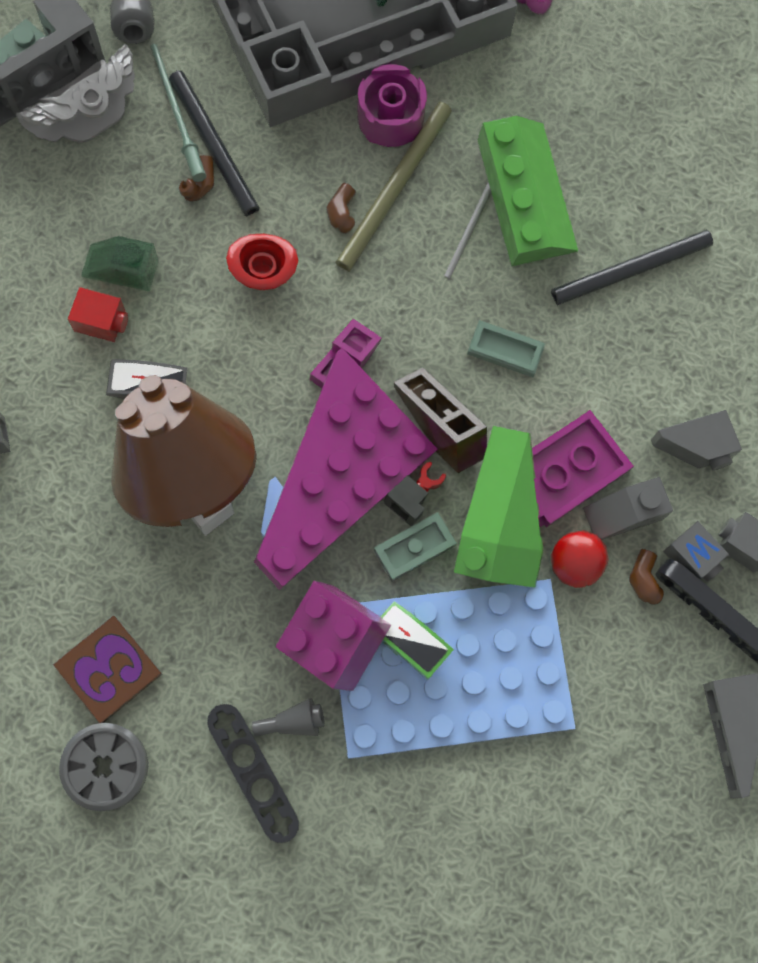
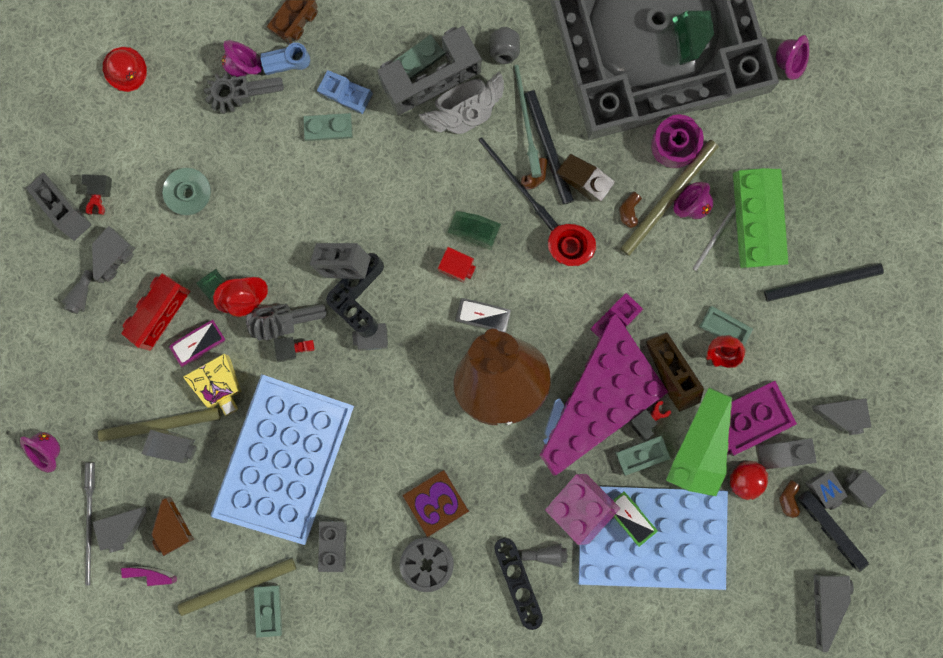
camera: 15 degrees right, 10 degrees up
(212, 226) = (539, 209): none -> black piece
(269, 170) = (585, 178): none -> dark brown slope
(431, 182) = (694, 201): none -> magenta hat
(511, 378) = (726, 351): none -> red hair

